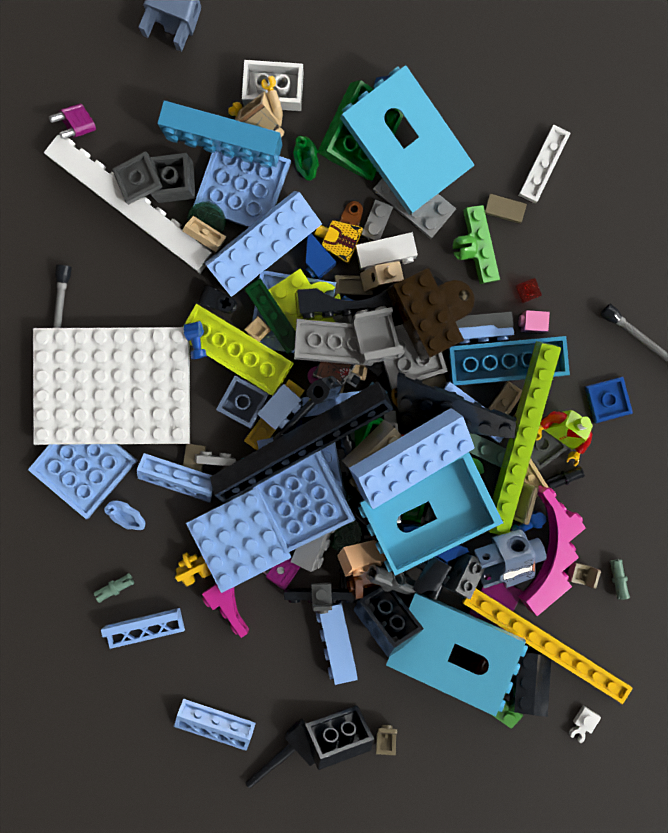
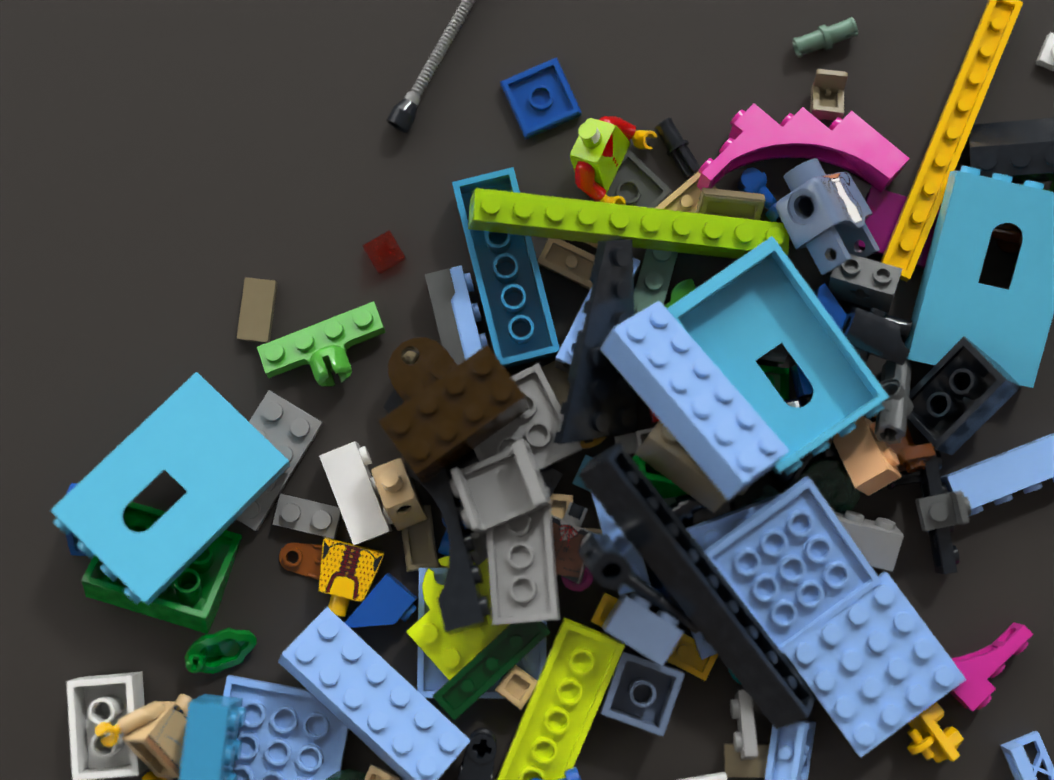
camera: 95 degrees left, 5 degrees down
(282, 573) = (914, 581): magenta piece -> none
(534, 321) = (434, 235): bright pink brick -> none
(544, 164) = (176, 259): white plate -> none

